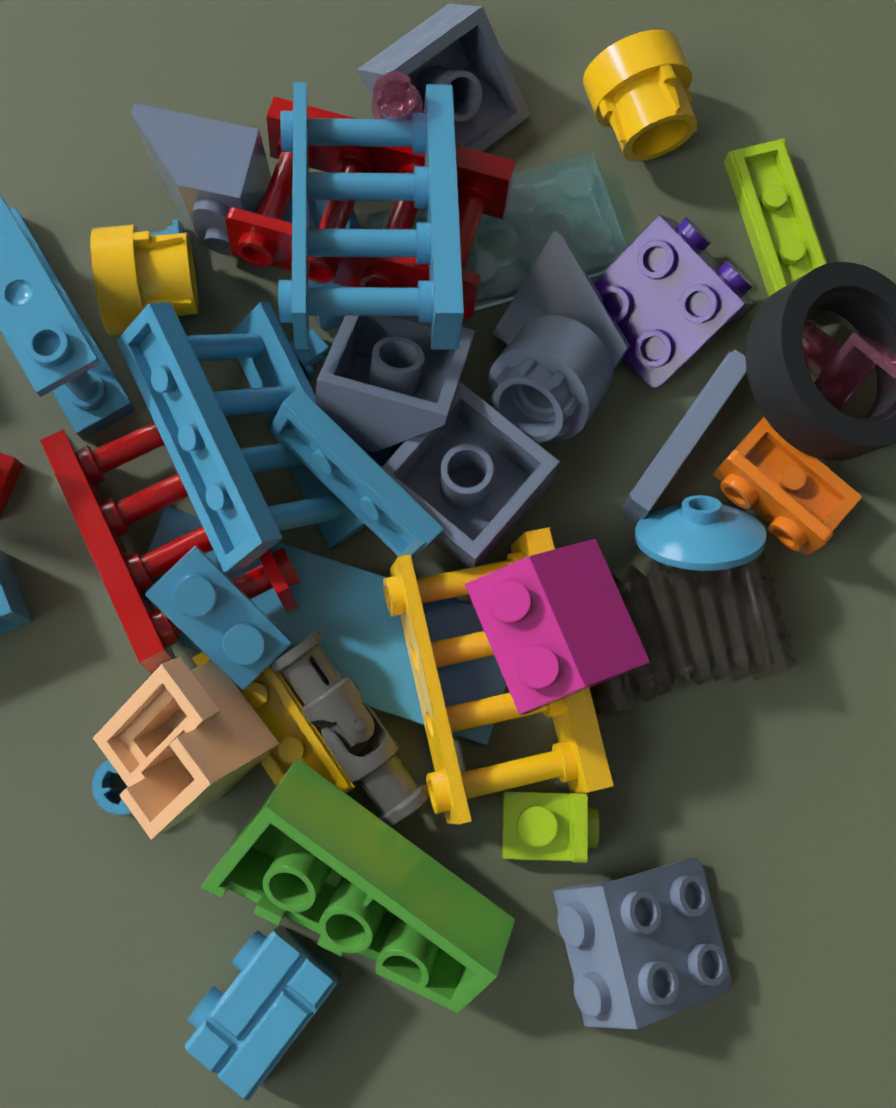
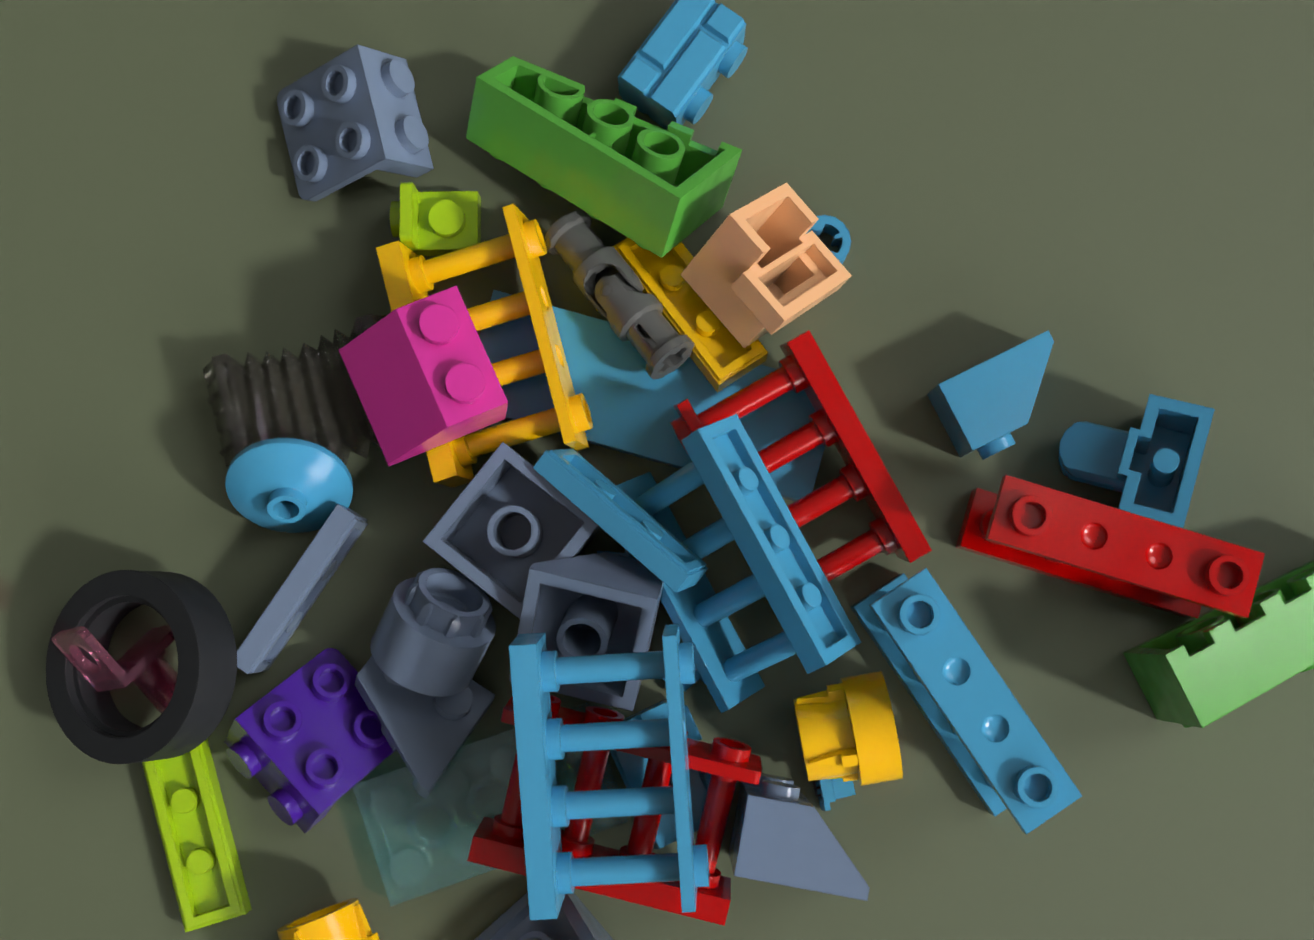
camera: 175 degrees left, 5 degrees up
(218, 617) = (741, 379): dark azure plate -> none
(395, 97) = (589, 904): clear pink axle -> none
(786, 489) = (204, 543): orange bracket -> none

